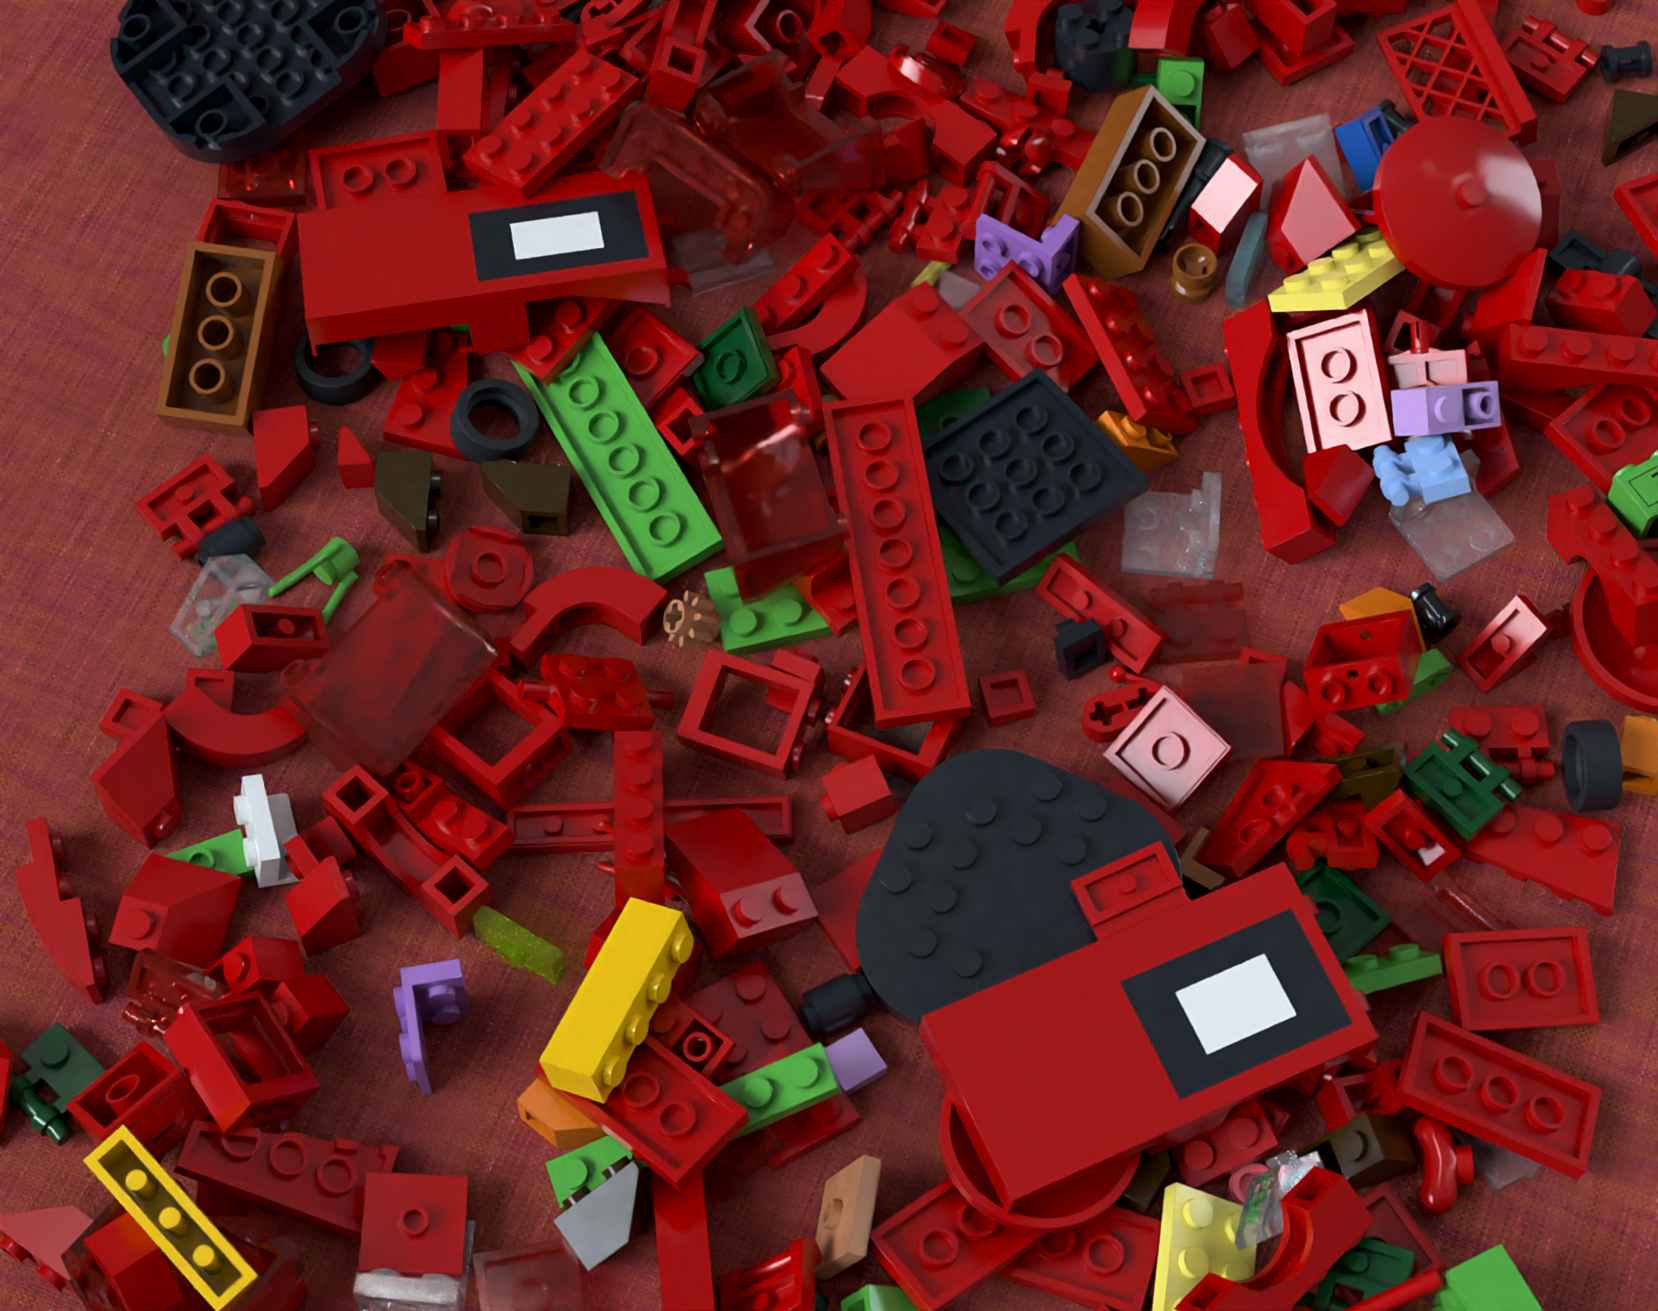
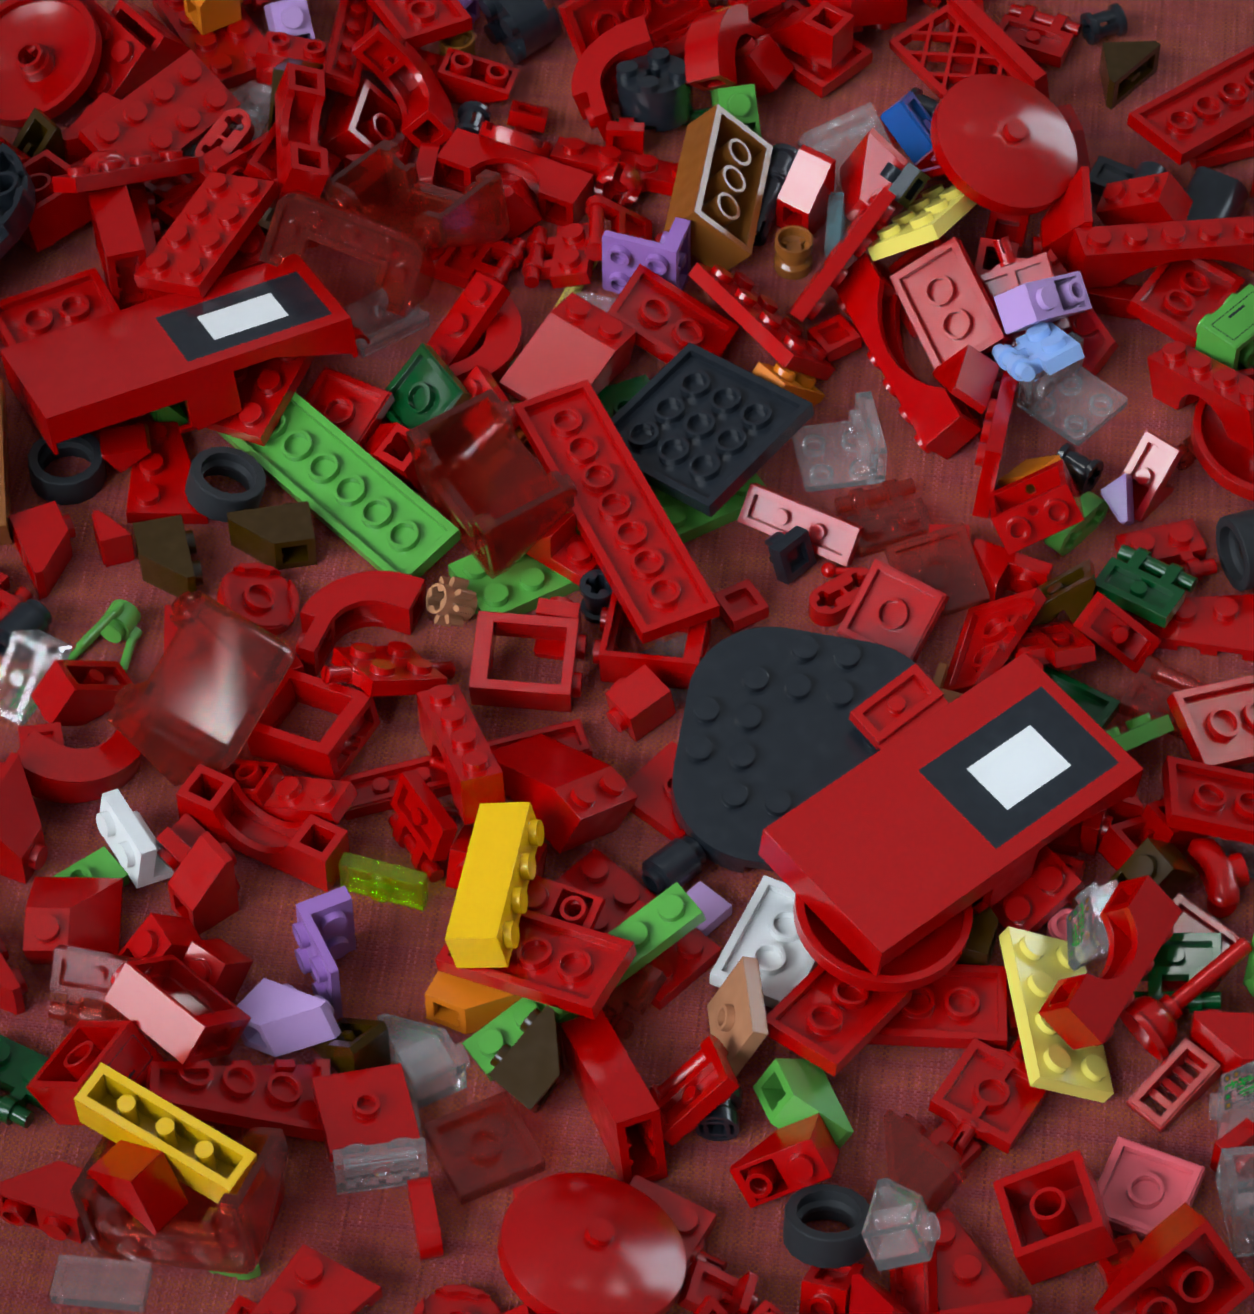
camera: 15 degrees left, 10 degrees down
(360, 1091) = (286, 1019): none -> lavender slope
(428, 1138) = (358, 1047): none -> dark brown slope
(498, 1174) = (428, 1057): none -> clear slope
(576, 890) = (421, 824): none -> red plate
(847, 648) = (596, 595): none -> black bush
(883, 39) = (465, 114): none -> black bush
(903, 1134) = (769, 935): none -> white plate
(1189, 342) = (855, 243): none -> red wing
(1332, 226) = (905, 183): none -> black tile
(1345, 559) = (993, 440): none -> red wing
(1467, 667) = (1120, 498): none -> medium lavender slope

